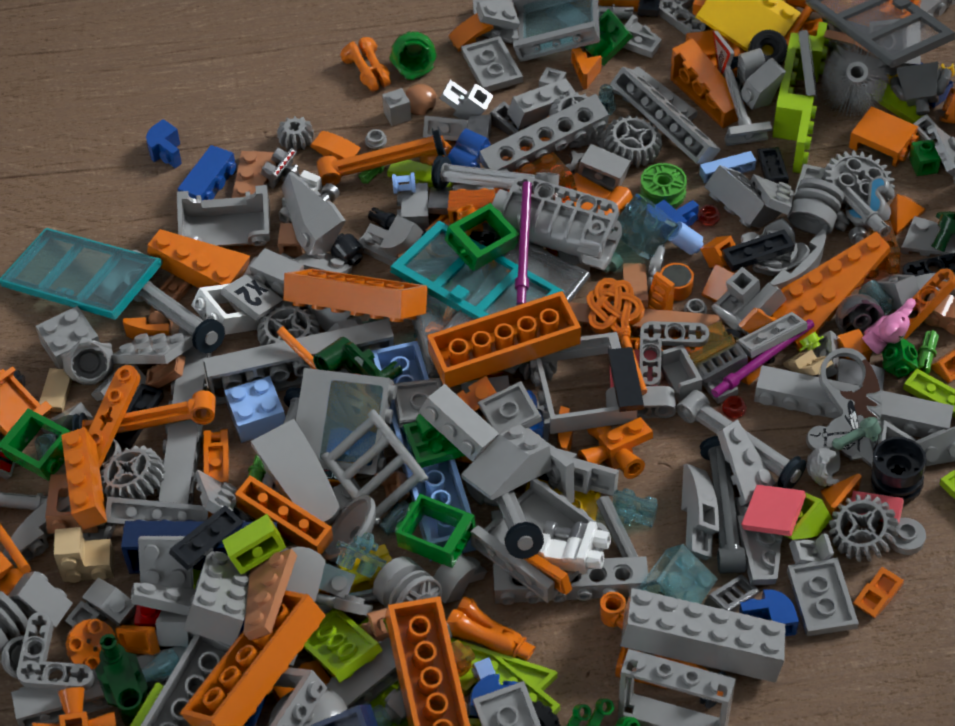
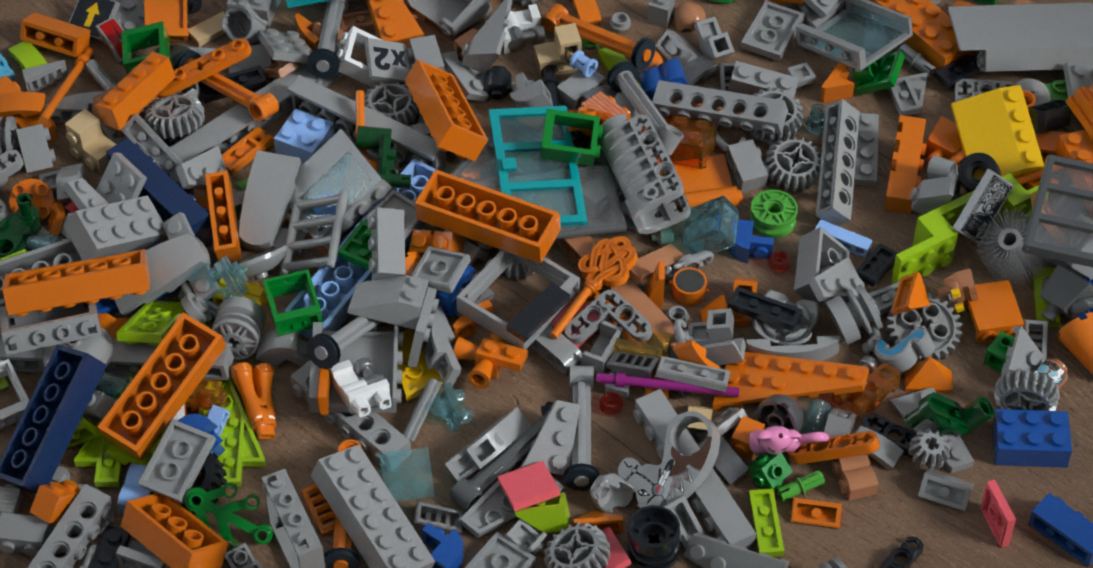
camera: 45 degrees right, 0 degrees up
(205, 537) = (150, 185): black plate -> none
(253, 544) = (165, 210): lime brick -> none
(266, 593) = (134, 245): nougat wing -> none
(370, 190) = (558, 53): none -> tan brick
(522, 281) = (557, 190): magenta bar -> none
(686, 239) = (734, 261): light blue brick -> none
(746, 131) = (887, 222): light grey piece -> none
(810, 342) = (720, 404): lime plate -> none
(831, 164) = (910, 294): none -> orange slope
(856, 133) = (959, 288): none -> nougat piece
(868, 428) = (663, 489): sand green piece -> none
(871, 218) = (880, 355): light grey axle -> none

